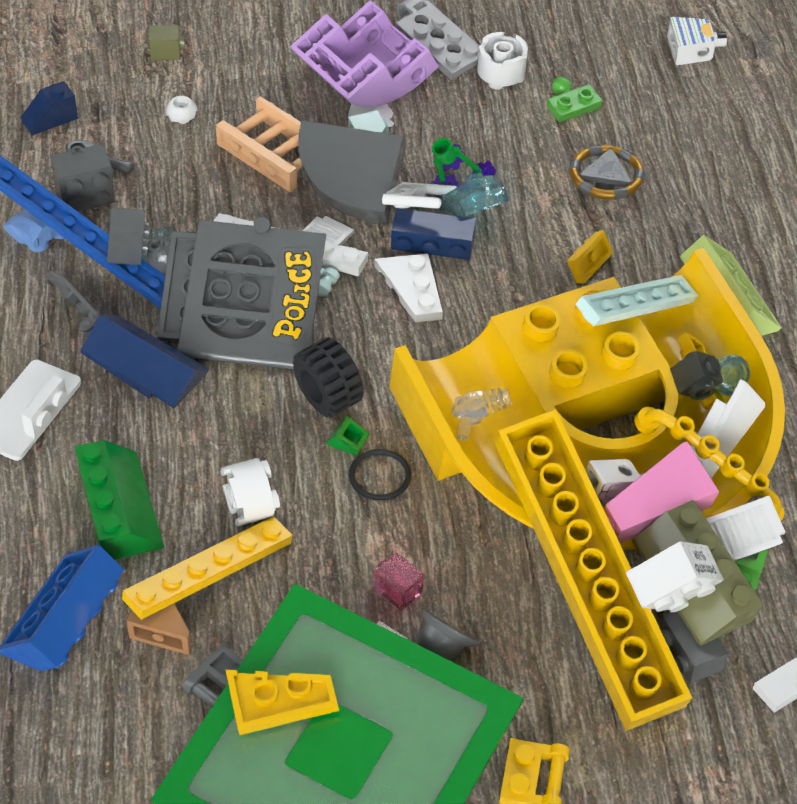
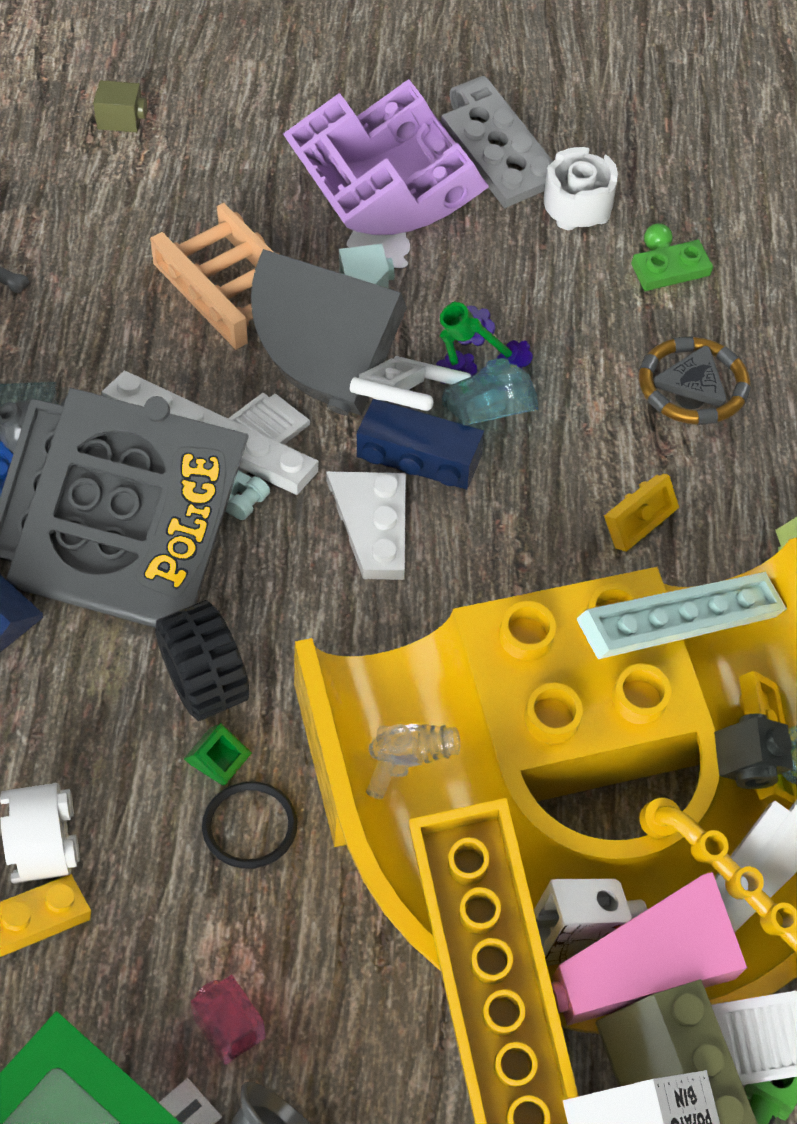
camera: 10 degrees right, 5 degrees up
(181, 109) = (116, 207): white plate -> none

